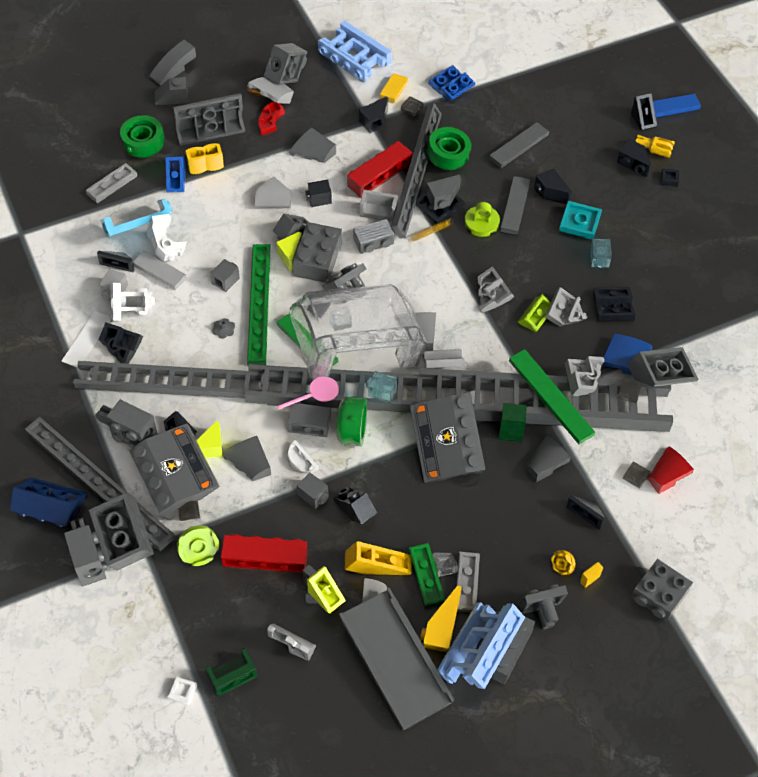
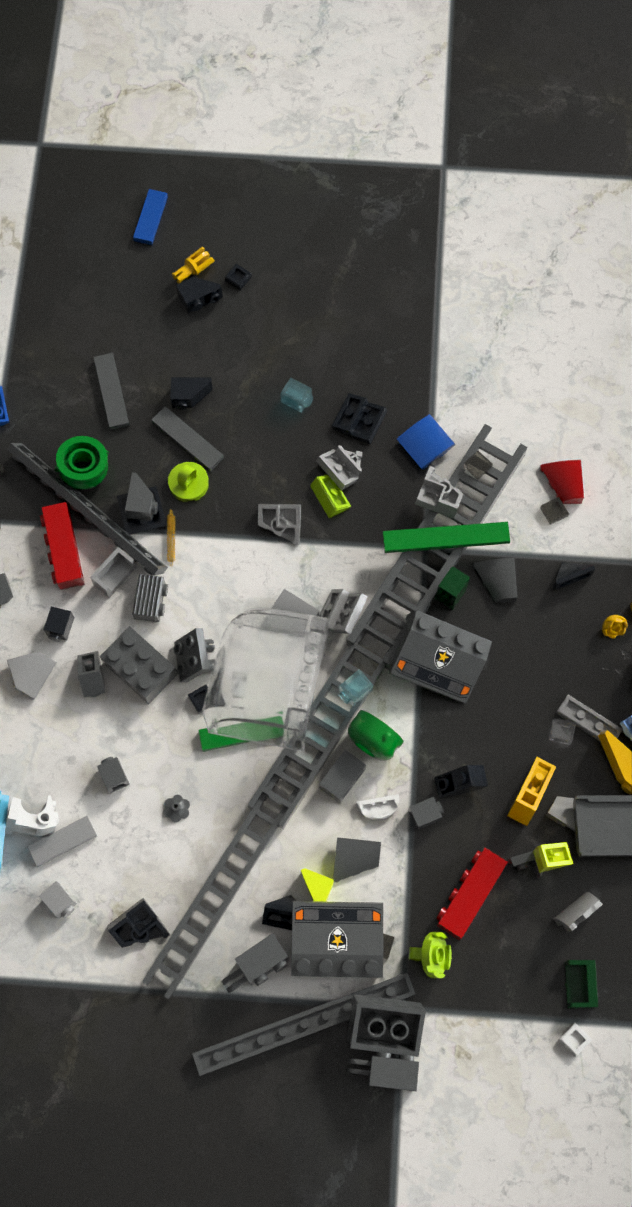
camera: 60 degrees left, 15 degrees up
(47, 501) = (301, 1086): dark blue slope -> none
(86, 339) = (110, 959): white sticker -> none
(116, 260) = (22, 879): black slope -> none
(144, 301) = (94, 907): white tile -> none
(259, 305) = (167, 757): green tile -> none
(287, 249) = (118, 692): neon yellow slope -> none
(321, 389) = (322, 746): bright pink piece -> none
(426, 575) = (565, 753): green tile -> none
(580, 220) = (244, 389): teal plate -> none
(644, 112) = (146, 250): black slope -> none
(662, 367) = (468, 421): dark grey slope -> none

